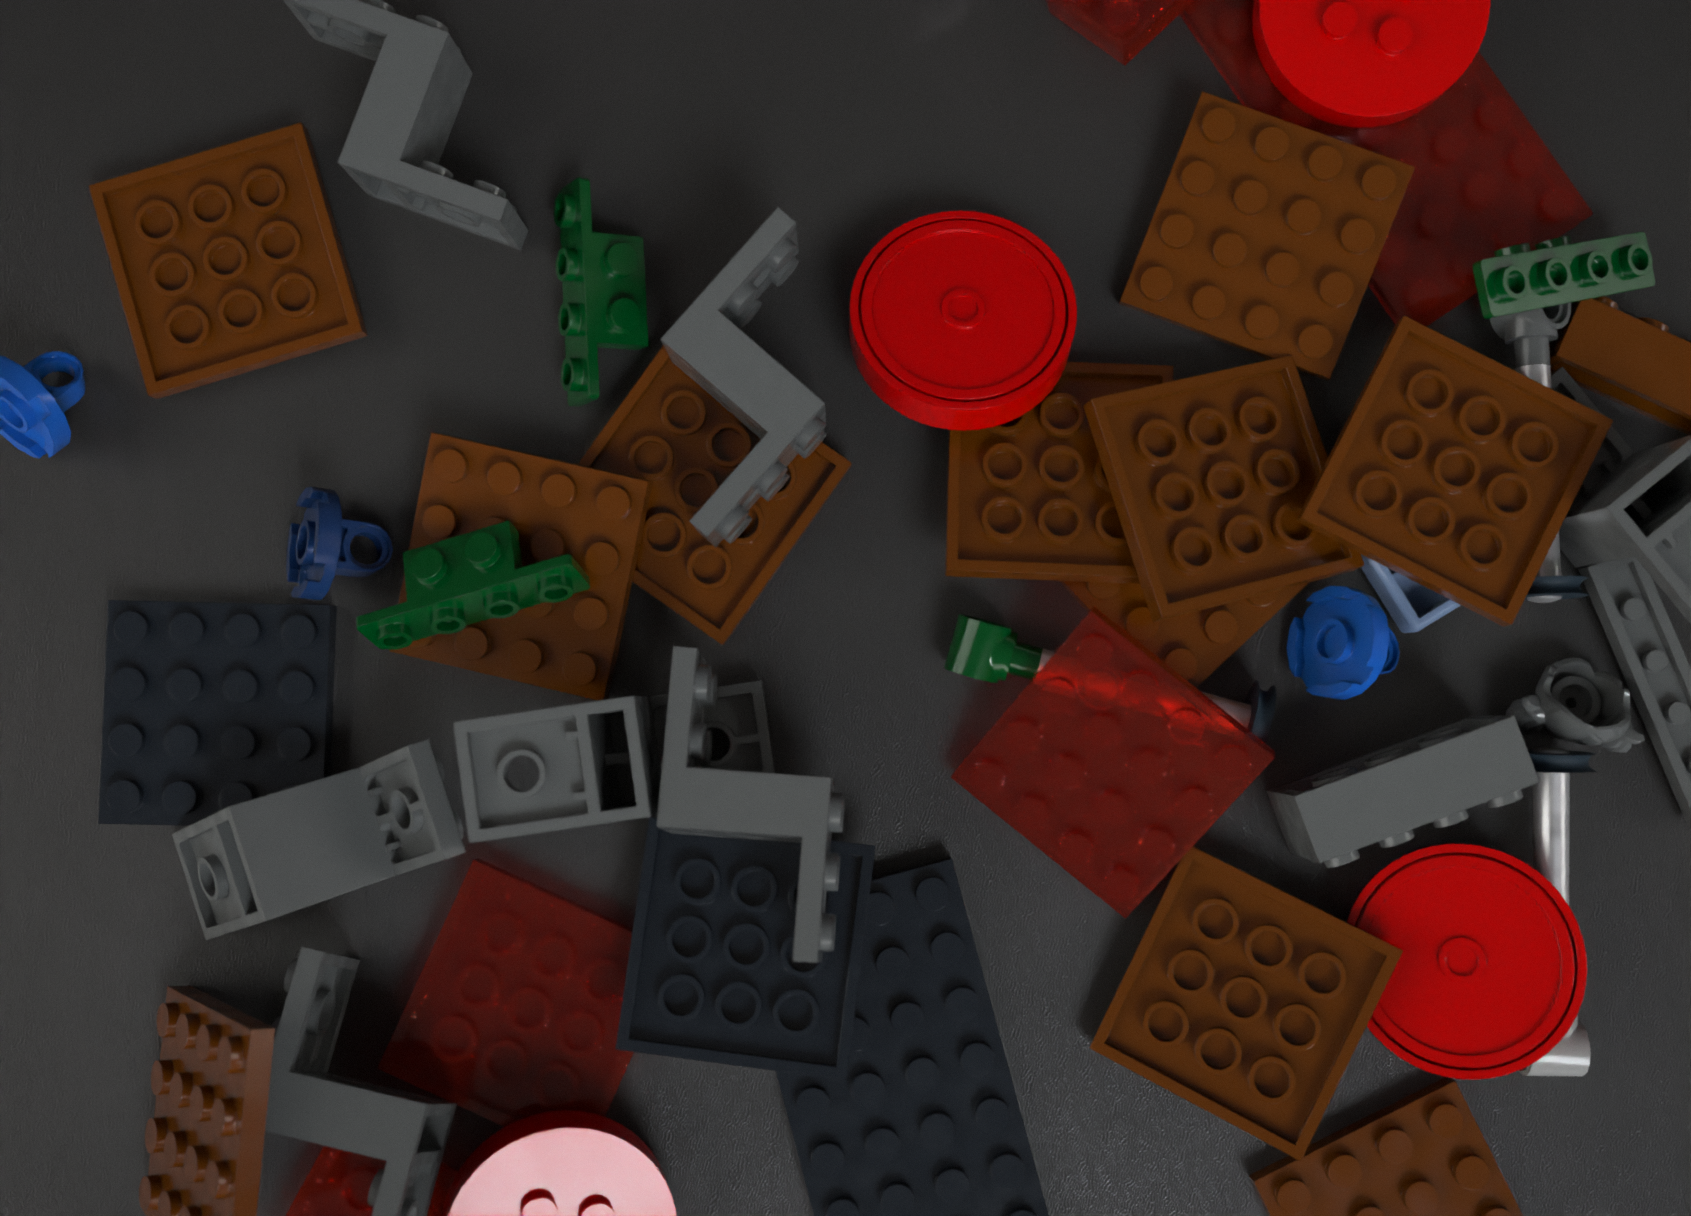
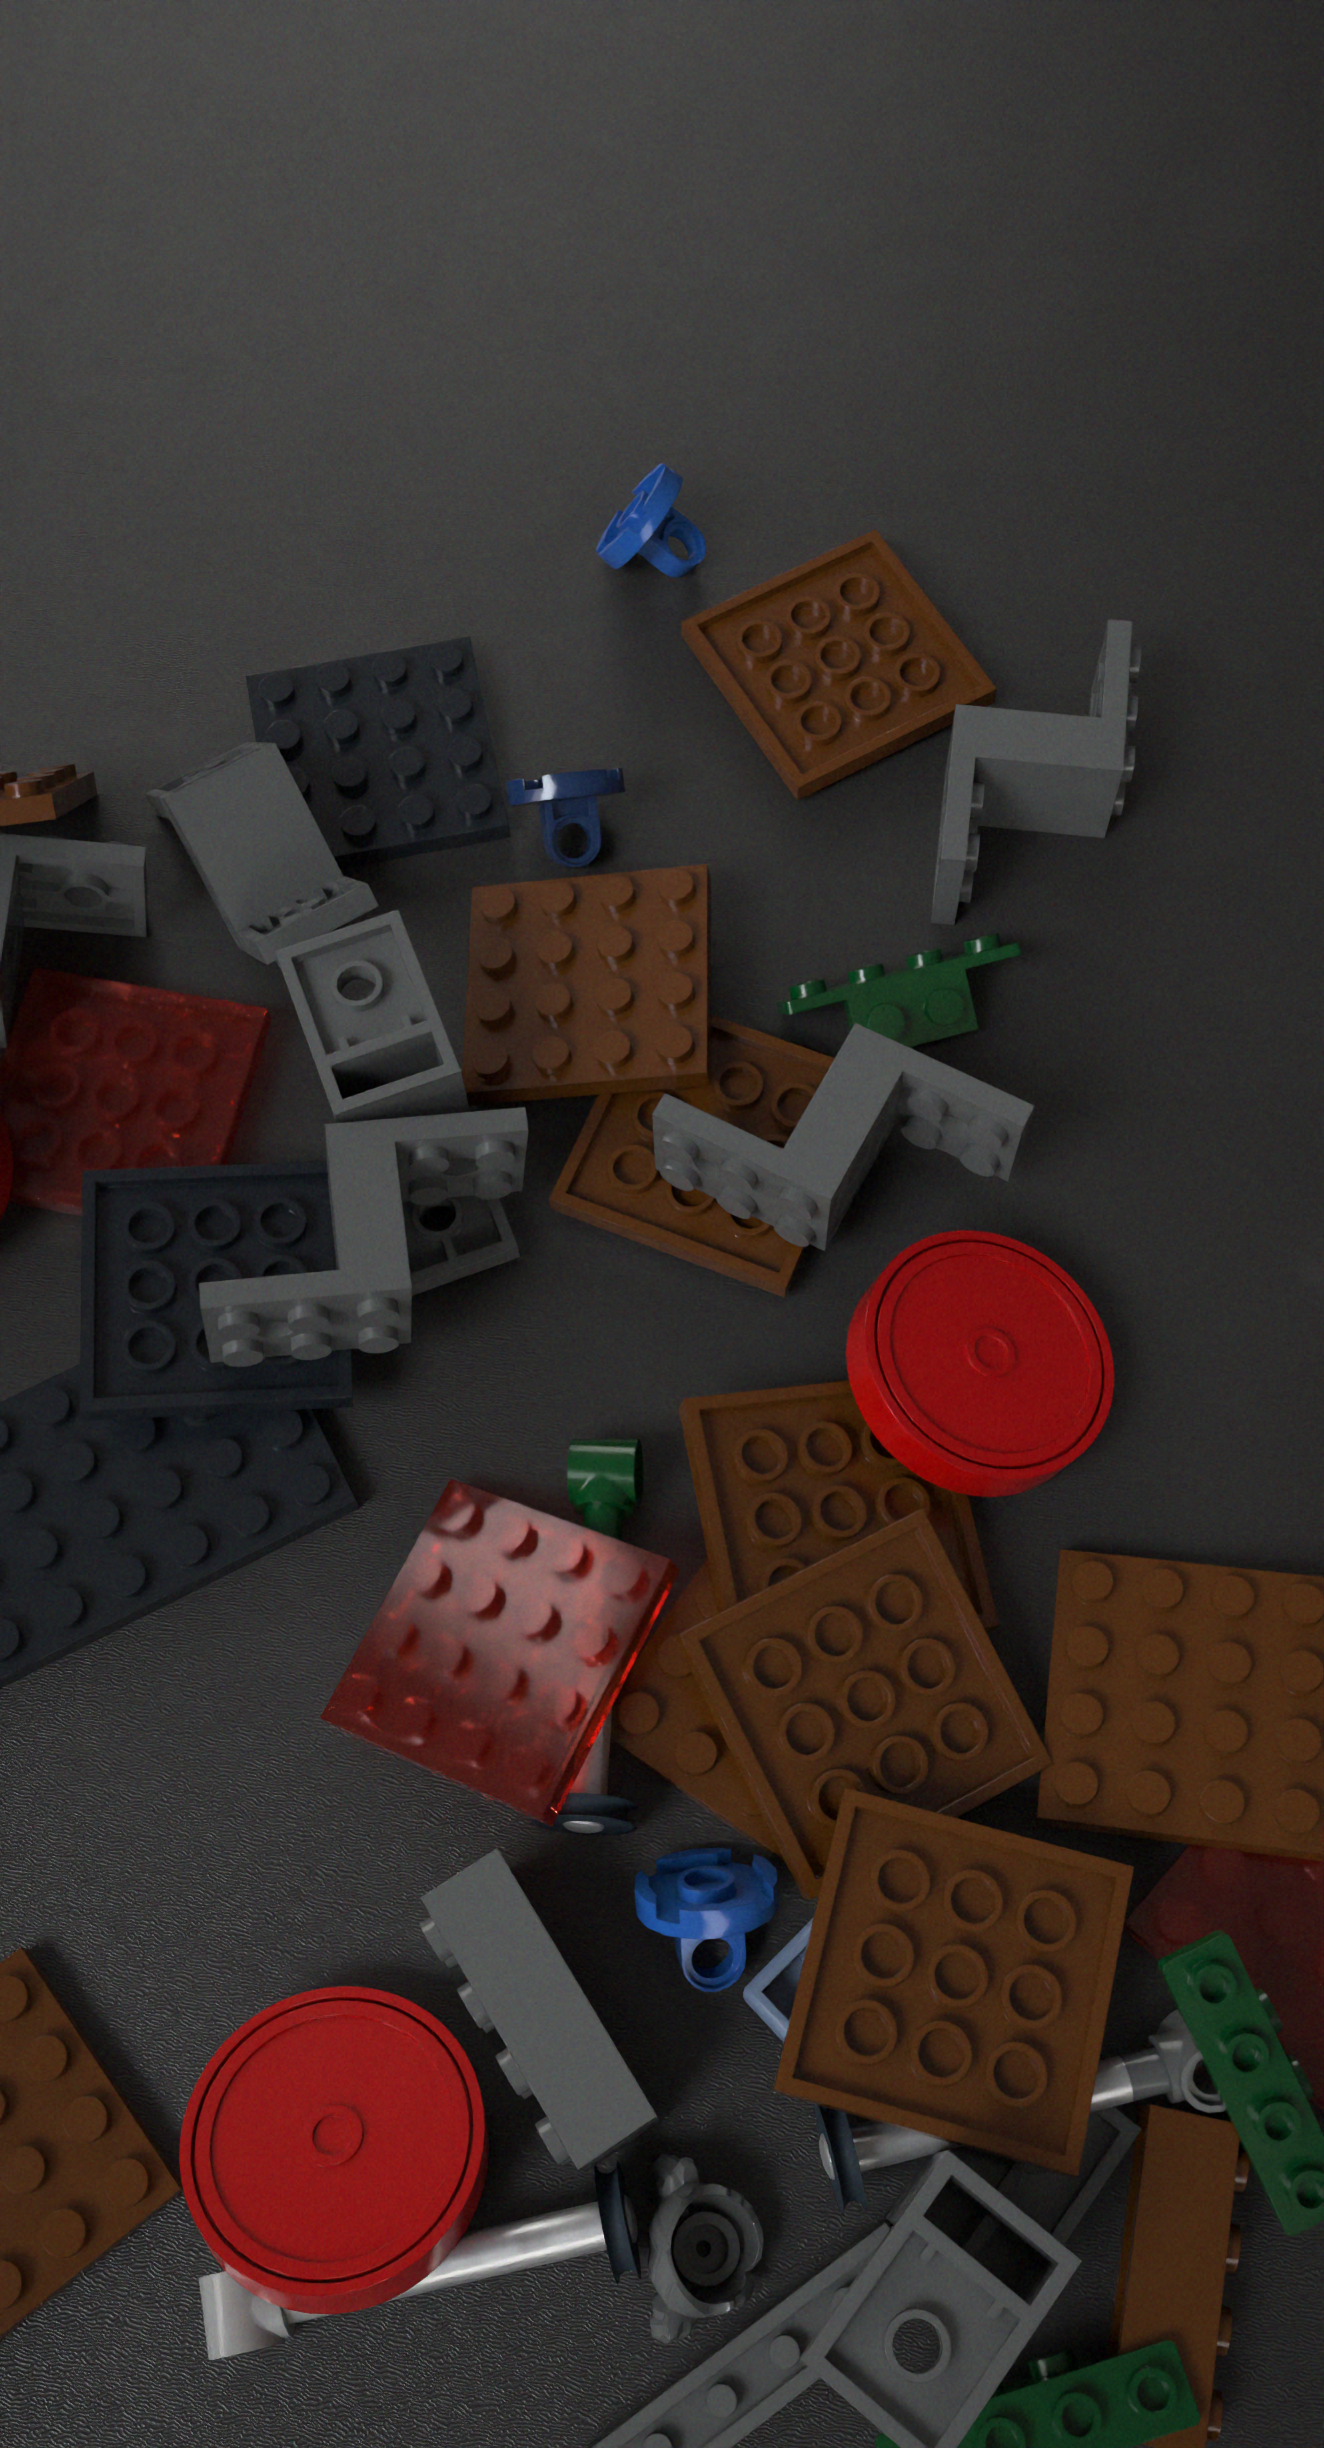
camera: 80 degrees right, 20 degrees down
(467, 583) = (554, 926): dark green bracket -> none
(1246, 1001) = (241, 1877): reddish brown plate -> none

